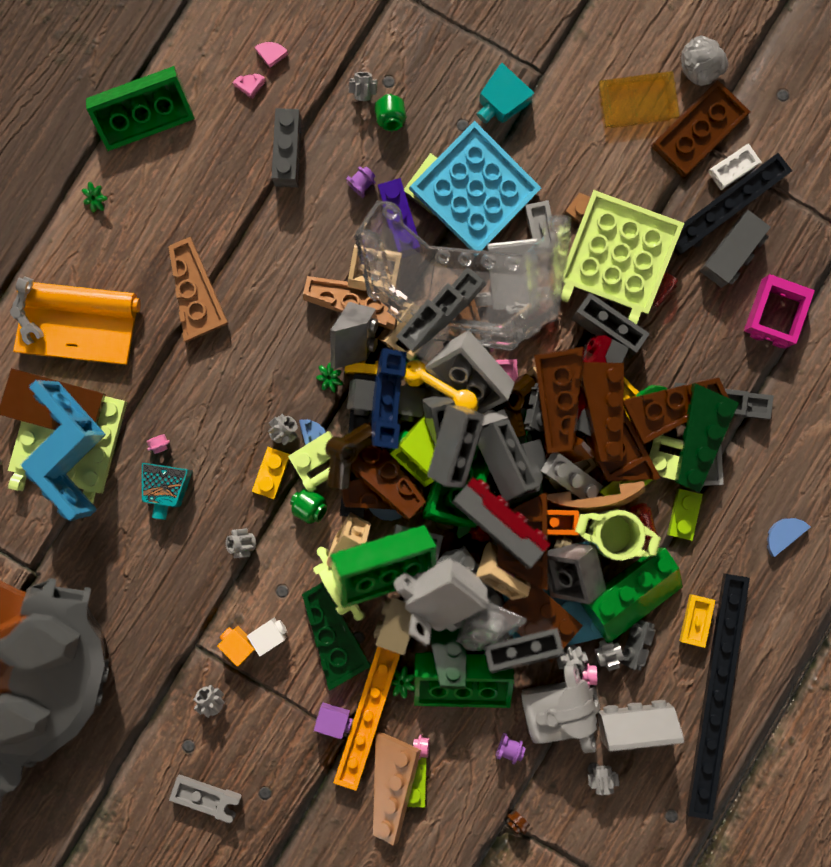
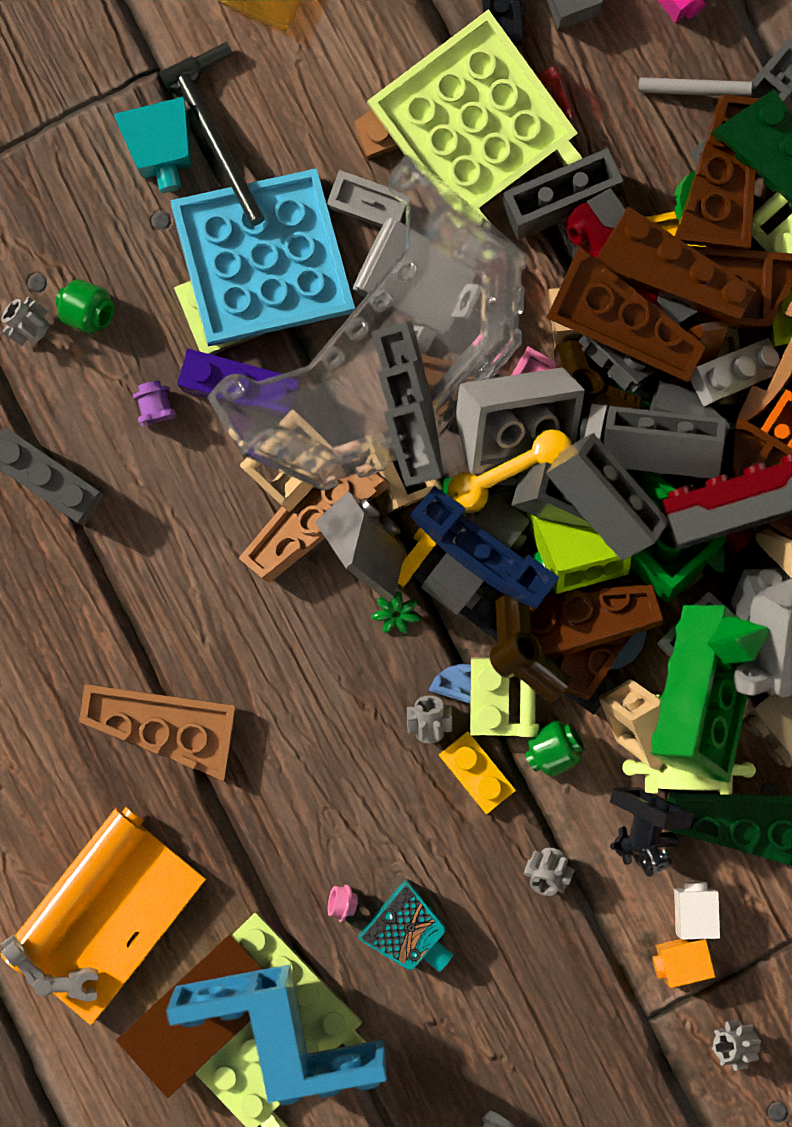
camera: 55 degrees left, 0 degrees up
(297, 583) = (646, 835): none -> black piece
(420, 563) = (738, 640): none -> green slope
(545, 88) = (182, 78): none -> pearl dark grey bar
(714, 362) = (695, 87): none -> light grey bar

